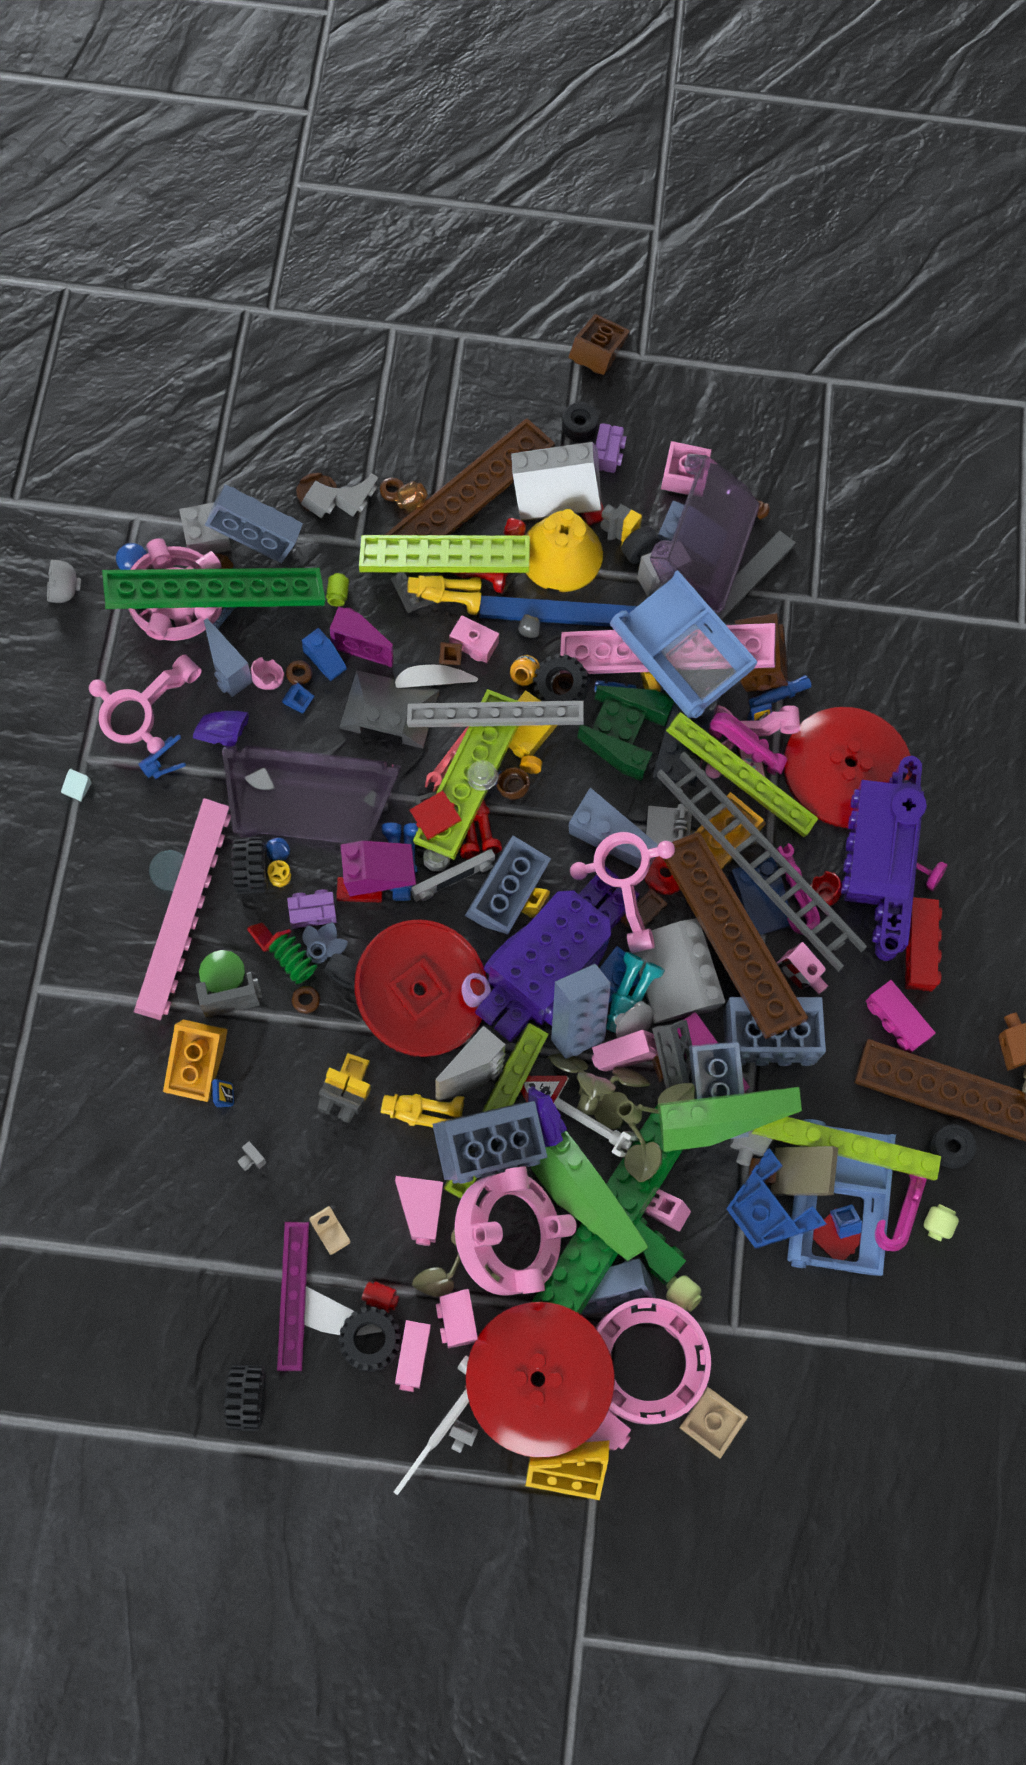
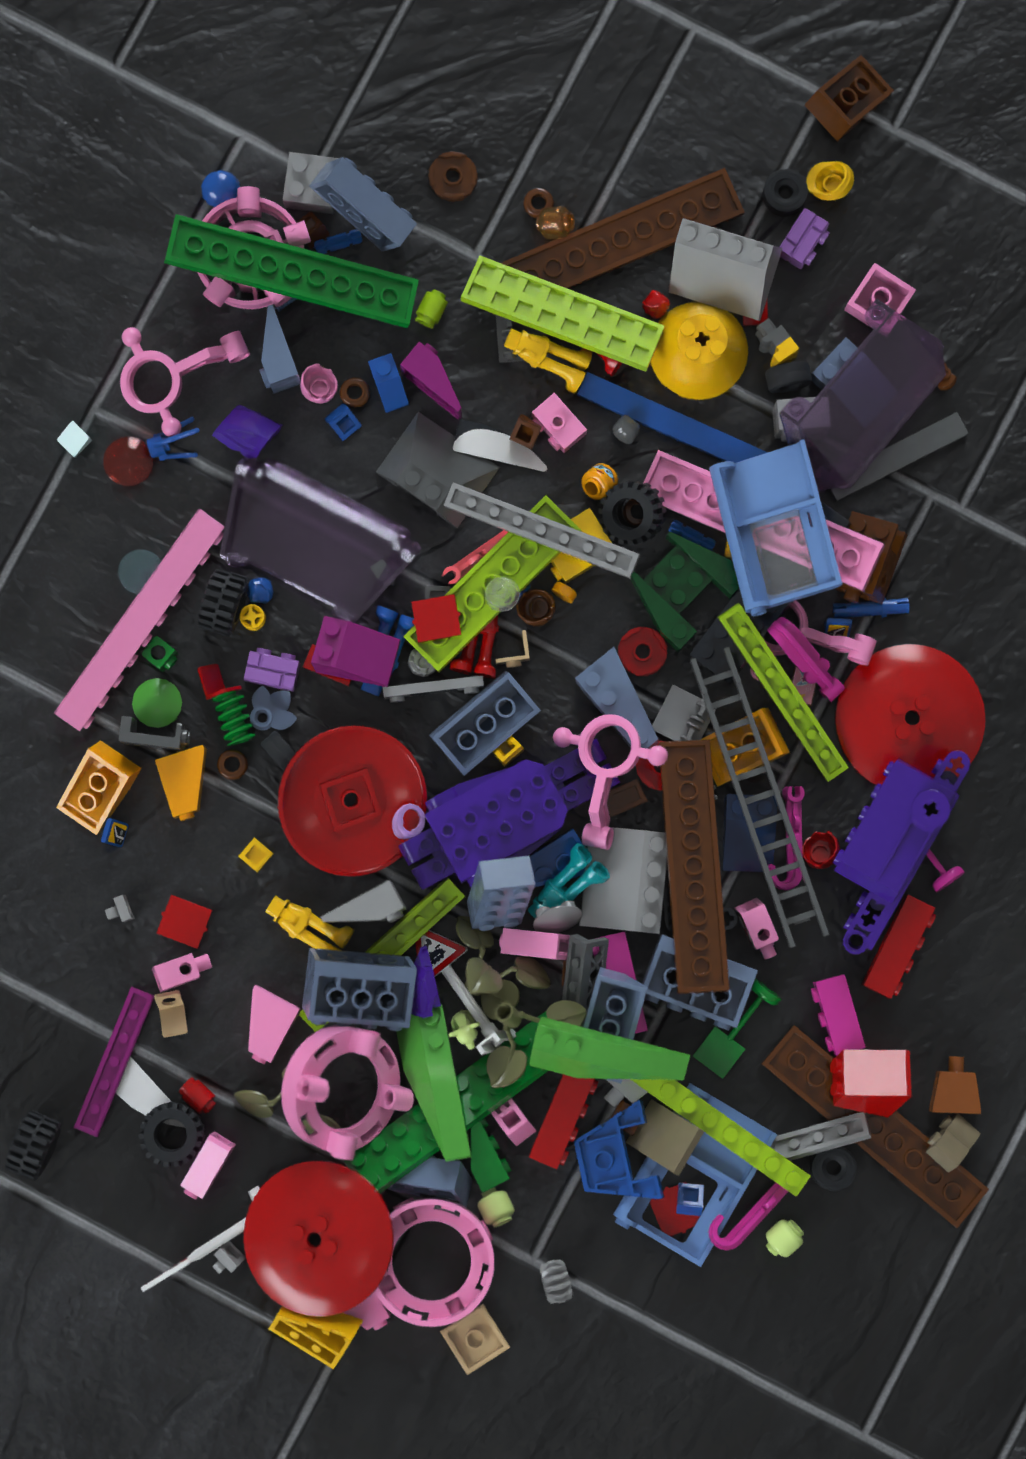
camera: 25 degrees right, 15 degrees up
(61, 582) = (133, 194): light grey cylinder -> none
(128, 787) = (128, 461): none -> clear red dish
(218, 934) = (169, 659): none -> green bracket
(248, 563) = (338, 241): none -> blue axle
(261, 780) = (269, 506): light grey tile -> none
(267, 1026) = (183, 780): none -> light orange slope
(312, 1148) = (184, 921): none -> red piece
(315, 1194) = (169, 975): none -> bright pink torso
(324, 498) = (452, 194): light grey arch -> none
(333, 1093) = (225, 872): dark grey hips -> none
(457, 1318) = (263, 1148): bright pink slope -> none
(514, 829) = (516, 661): none -> tan bracket
(594, 1145) = (464, 1029): none -> yellowish green animal
(611, 401) = (830, 180): none -> yellow hat
(621, 780) = (649, 638): none -> red tile
(707, 1192) = (560, 1120): none -> red brick
(764, 1337) = (556, 1281): none -> light grey gear
(815, 1084) = (720, 1050): none -> green piece
(936, 1120) = (823, 1136): none -> light grey plate
(955, 1055) = (871, 1080): none -> slope

